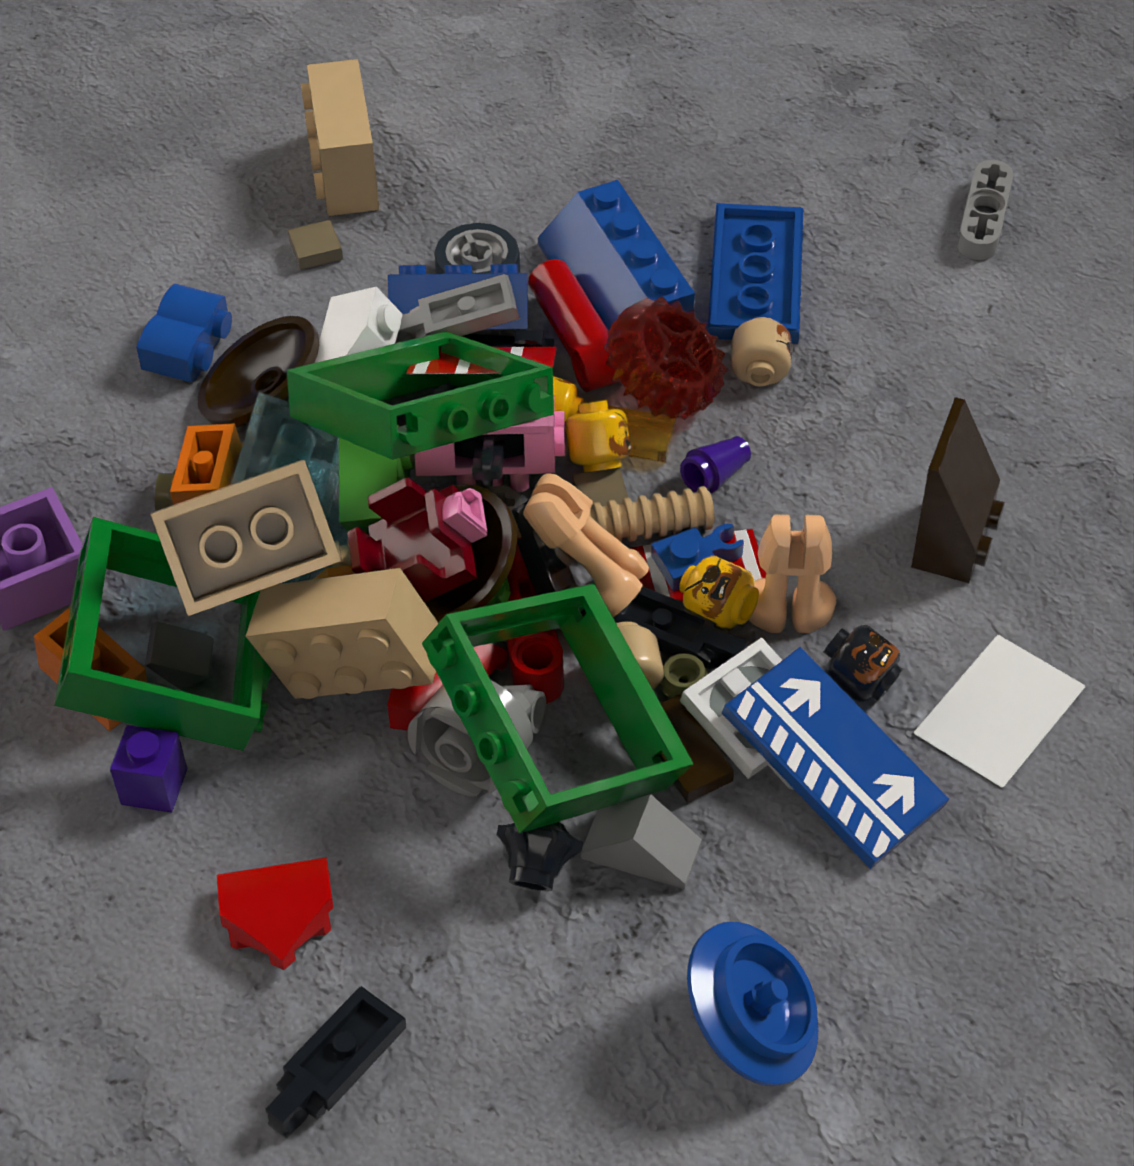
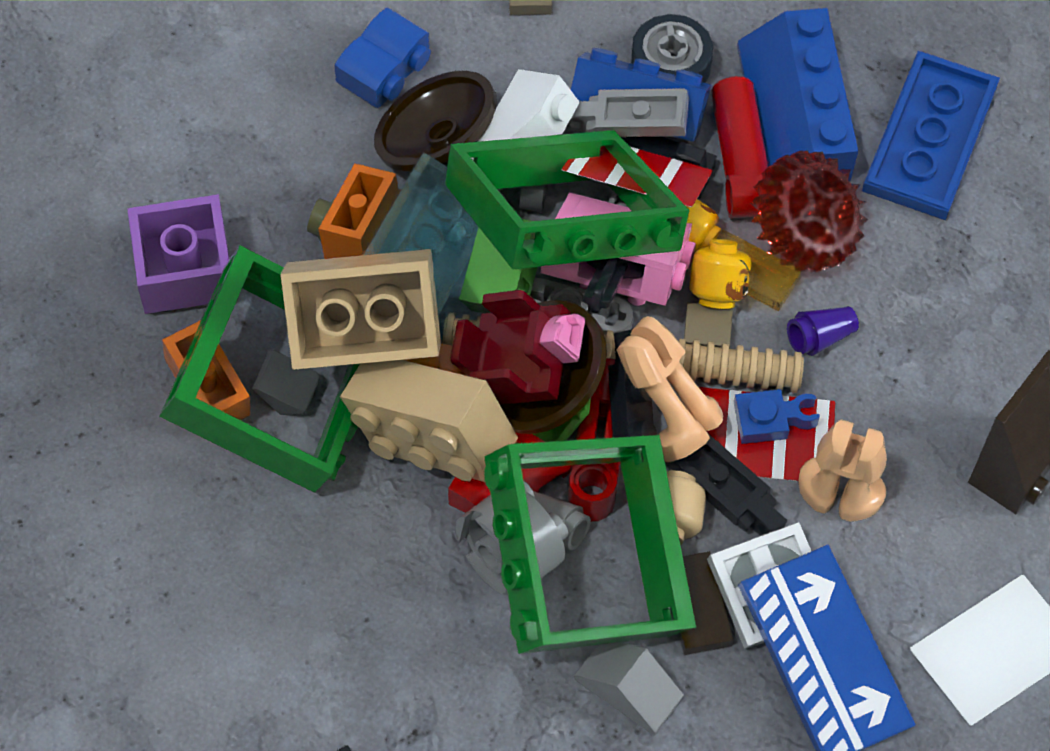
camera: 15 degrees right, 10 degrees up
(149, 768) = (229, 487): dark purple brick -> none
(276, 907) = (299, 648): red slope -> none
(537, 854) = (535, 672): black rock -> none
(680, 668) = (719, 525): olive plate -> none
(719, 591) = (778, 463): yellow head -> none
(761, 349) = (904, 223): tan head -> none
(863, 663) = (884, 571): black head -> none

